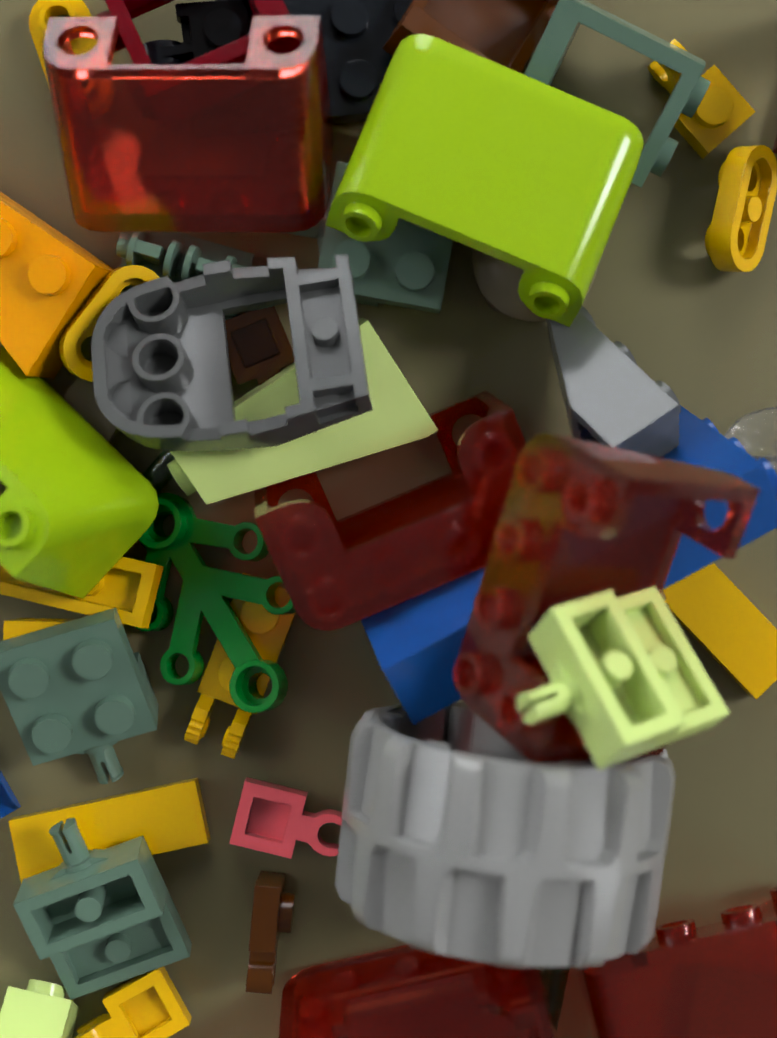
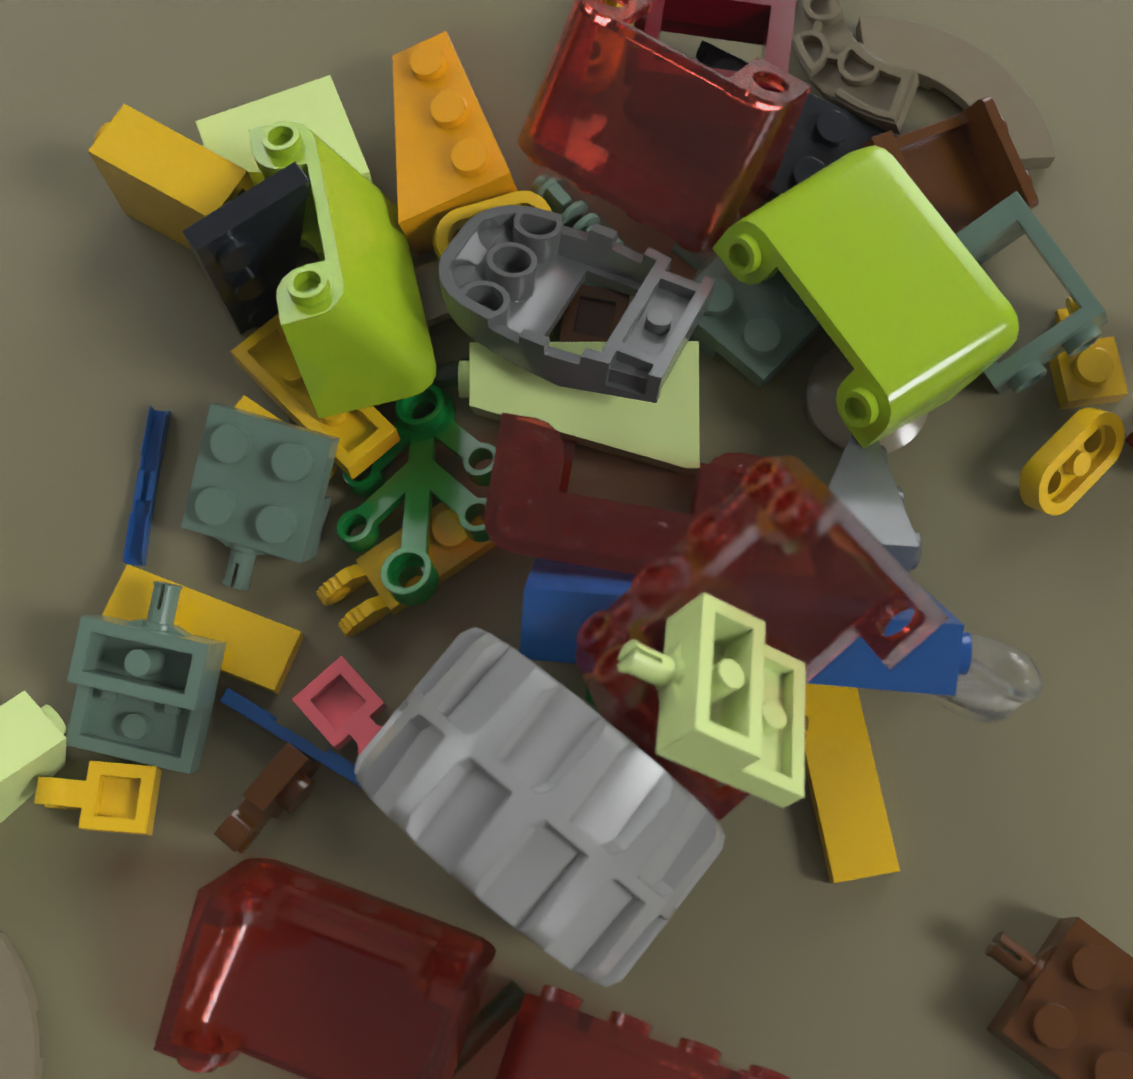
camera: 30 degrees right, 15 degrees down
(218, 868) = (268, 722): none -> blue piece

